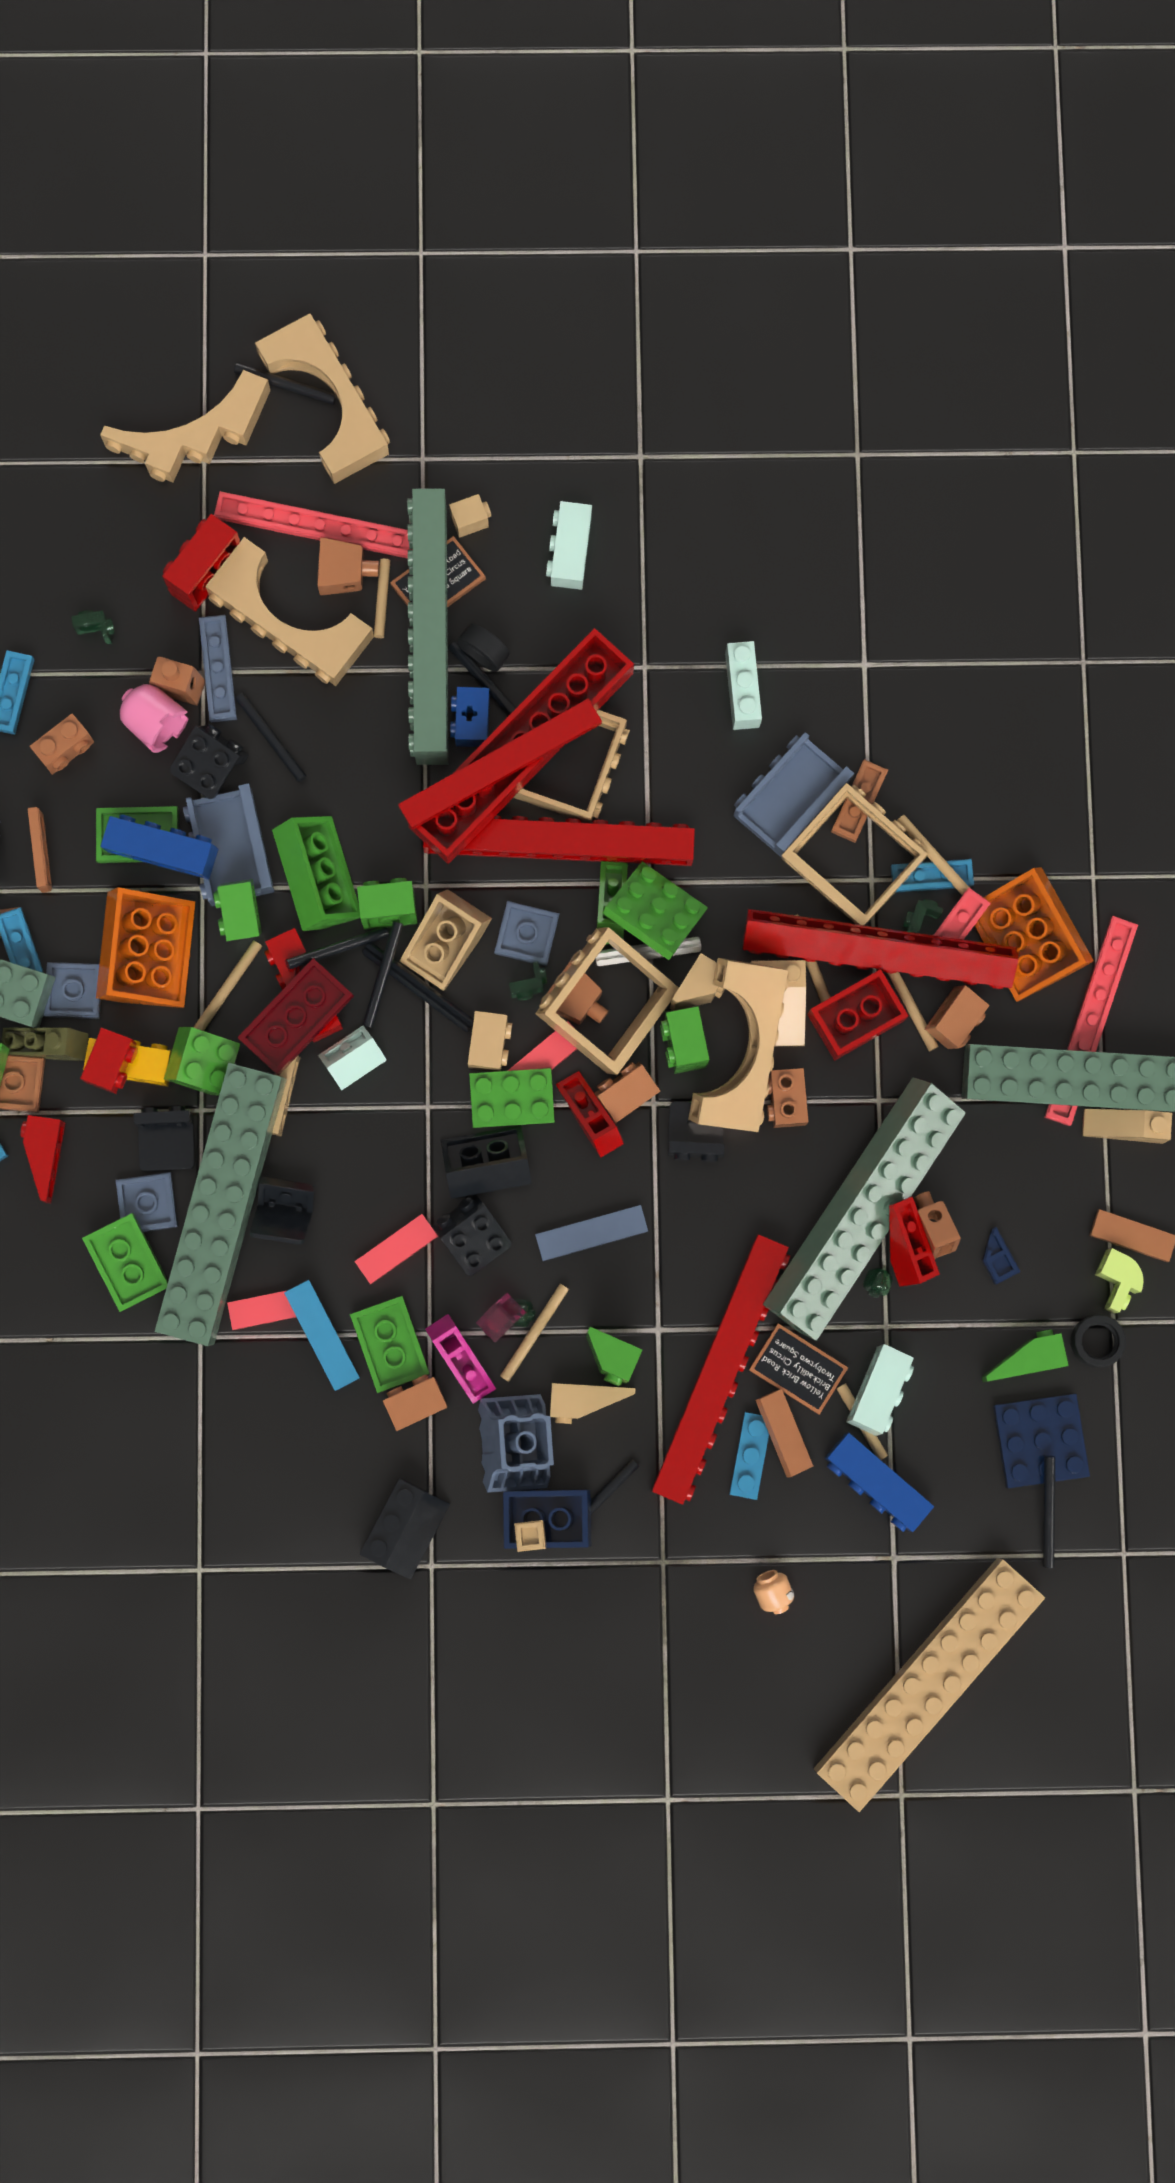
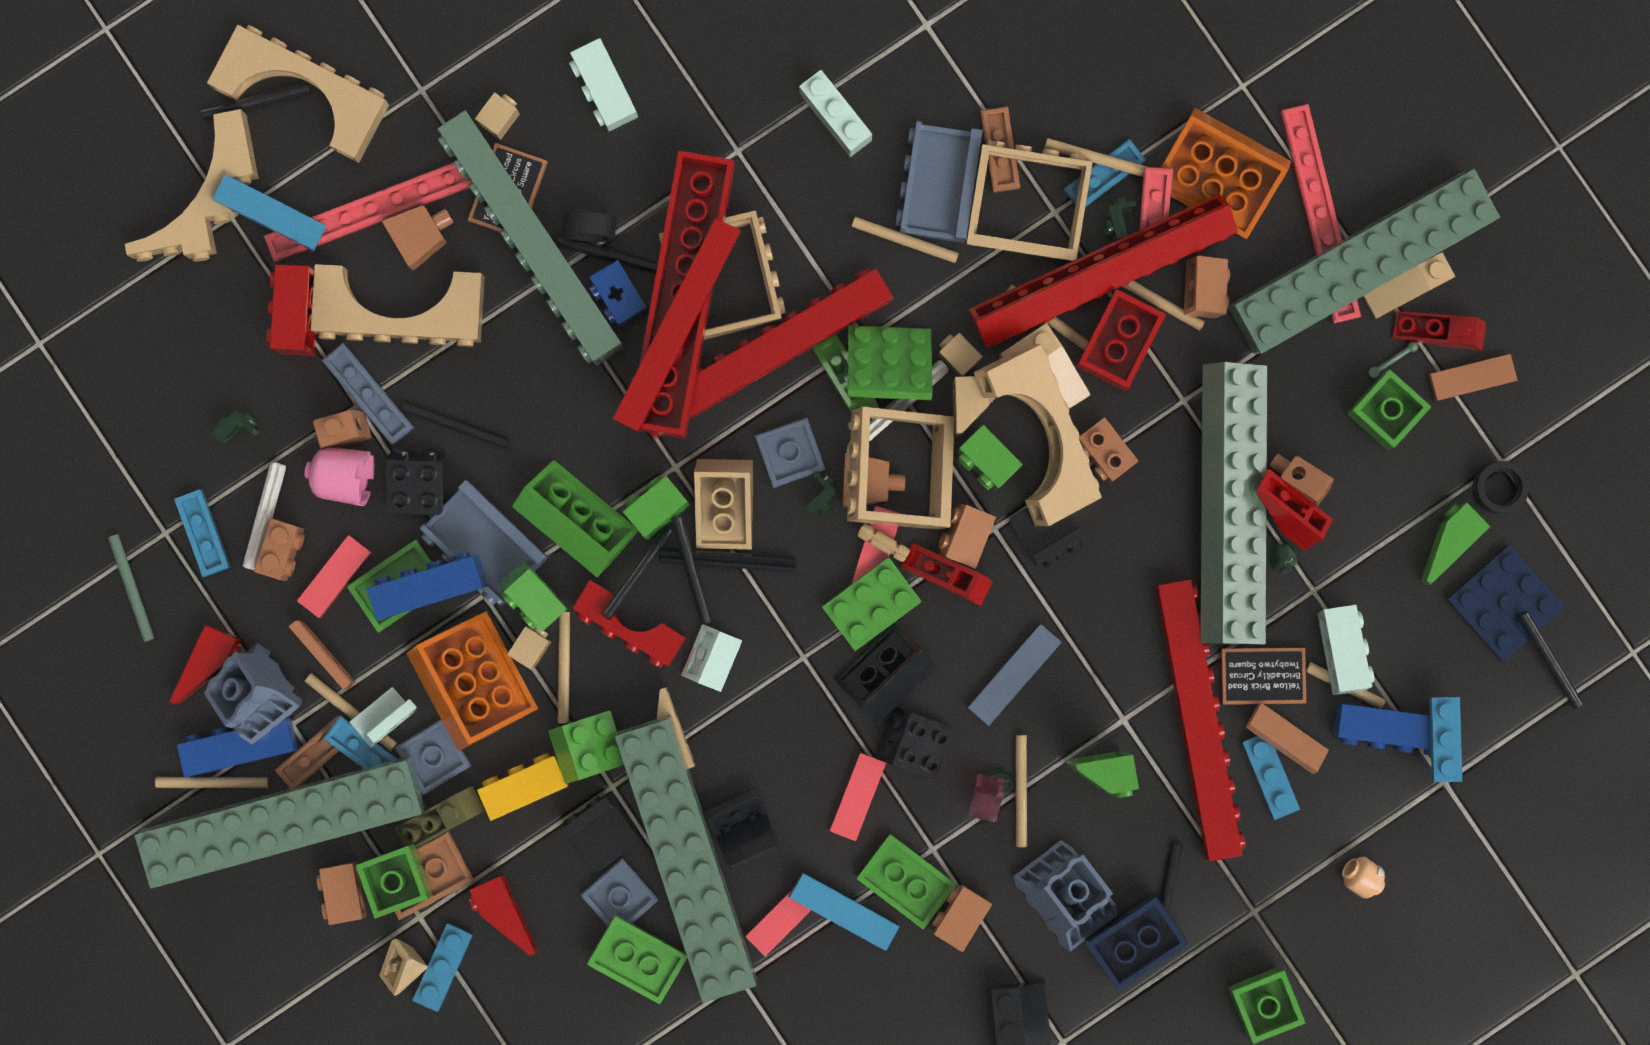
camera: 30 degrees left, 5 degrees up
(31, 911) = (342, 705): none -> tan bar
(53, 931) = (382, 717): none -> light aqua panel
(74, 705) = (264, 513): none -> white axle
(91, 795) = (334, 576): none -> coral tile
(109, 1061) = (510, 800): red brick -> none
(210, 952) = (530, 647): none -> tan brick
(235, 474) = (269, 213): none -> dark azure tile
(295, 1016) = (643, 657): dark red plate -> none
(382, 595) = (469, 238): tan bar -> none
(460, 1358) = (973, 854): dark pink slope -> none
(488, 1041) = (820, 569): tan brick -> none
(530, 1535) = (1134, 967): tan tile -> none
(554, 1053) = (883, 542): none -> tan axle
(576, 1401) = (1098, 823): tan slope -> none
(621, 1644) = (1266, 1005): none -> bright green brick
(717, 941) = (959, 354): none -> tan brick
(734, 823) = (905, 240): none -> tan bar
(916, 1518) = (1445, 739): none -> dark azure plate
(928, 1684) = (1541, 869): tan brick -> none
(998, 1258) = (1371, 471): dark blue tile -> none
(1044, 1214) = (1388, 410): none -> bright green brick
(1053, 1178) = (1374, 372): none -> sand green hinge
(1125, 1275) = (1486, 416): yellowish green brick -> none
(1131, 1179) = (1440, 330): none -> red slope

